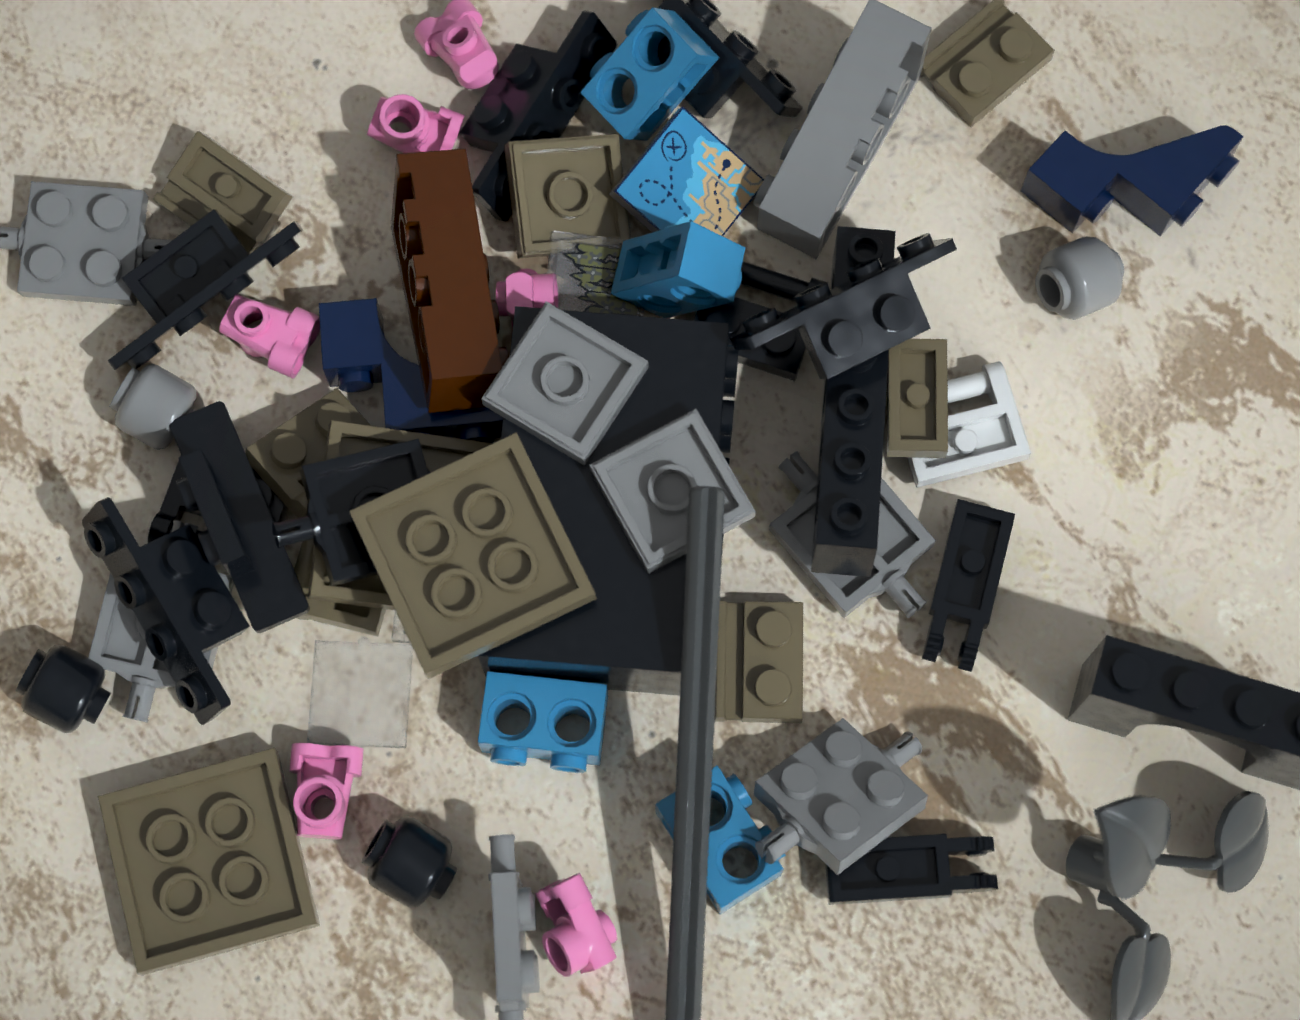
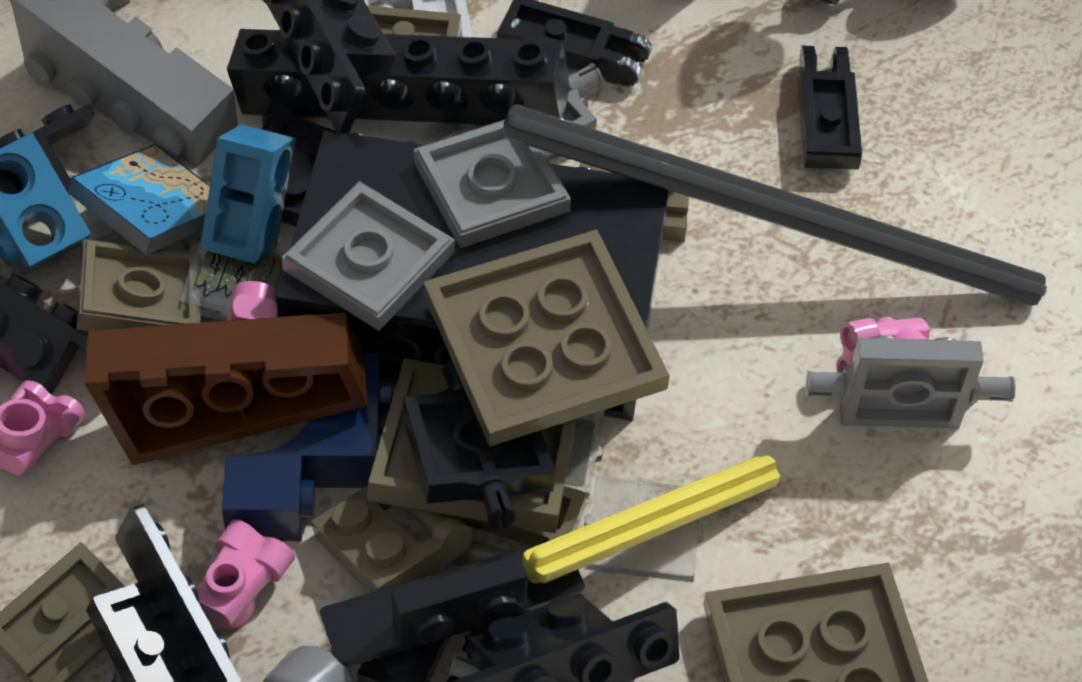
camera: 90 degrees left, 20 degrees down
(323, 774) = (751, 554): bright pink plate -> none
(340, 692) = (649, 519): none -> light yellow axle
(409, 861) = (824, 479): black head -> none
(546, 703) = (690, 358): dark azure brick -> none
(732, 832) = (788, 256): dark azure brick -> none
(839, 796) = (770, 132): light grey plate -> none

